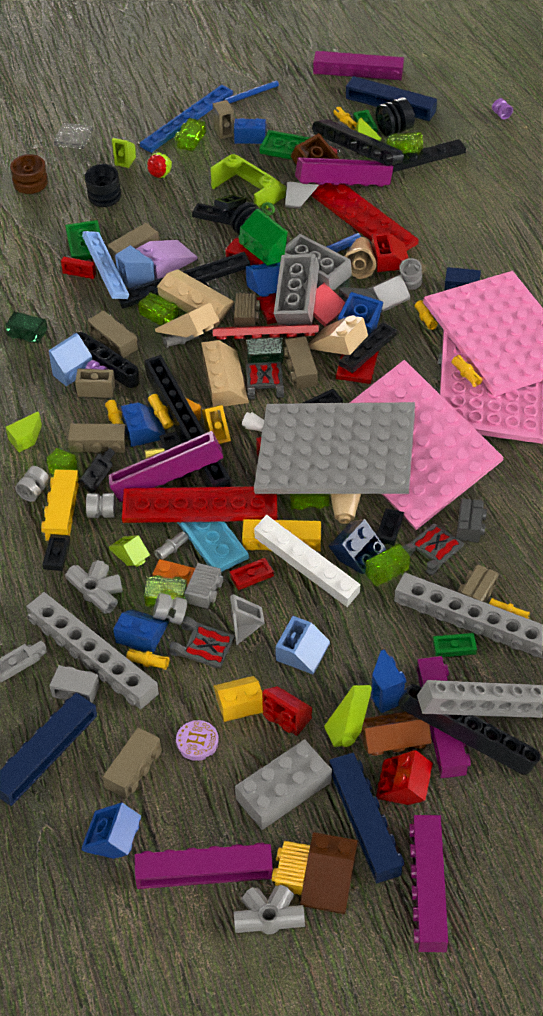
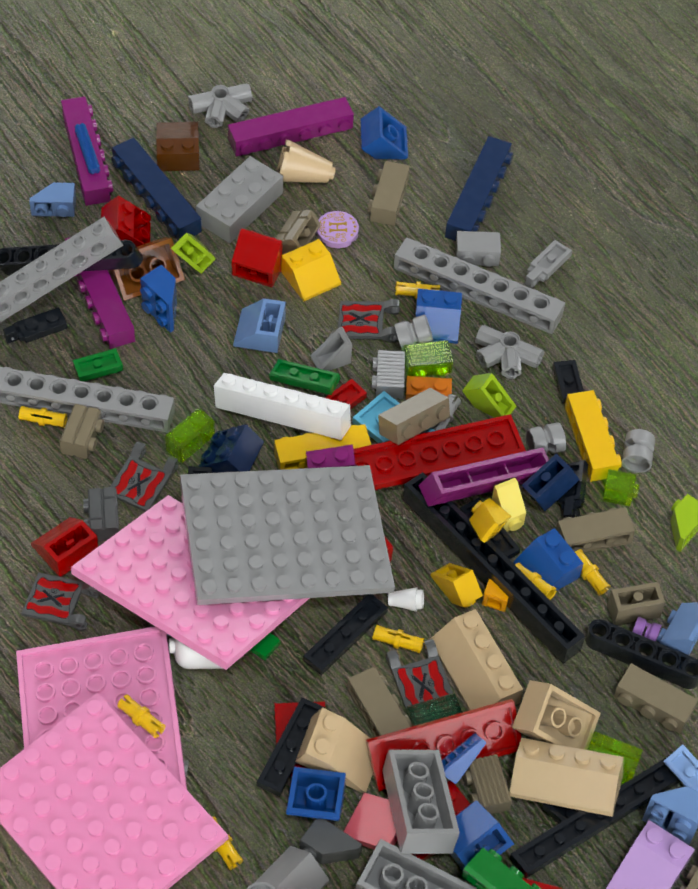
camera: 160 degrees right, 5 degrees up
(111, 462) = (550, 482): none -> dark blue brick
(177, 432) = (488, 519): none -> yellow slope
(201, 526) = (414, 416): none -> dark tan brick
(211, 806) = (303, 165): none -> tan cone
(239, 732) = (298, 230): none -> dark tan brick
(267, 319) = (461, 758): none -> slope
(267, 398) = (398, 639): none -> yellow pin
(276, 597) = (304, 376): none -> green tile
(281, 507) = (331, 457): none -> magenta plate
(291, 866) = (212, 140): yellow brick -> none
(429, 861) = (87, 148): none -> blue axle
(470, 824) = (54, 200): none -> medium blue slope
(504, 500) = (66, 545): none -> red slope
(514, 474) = (56, 599): none -> dark grey flag

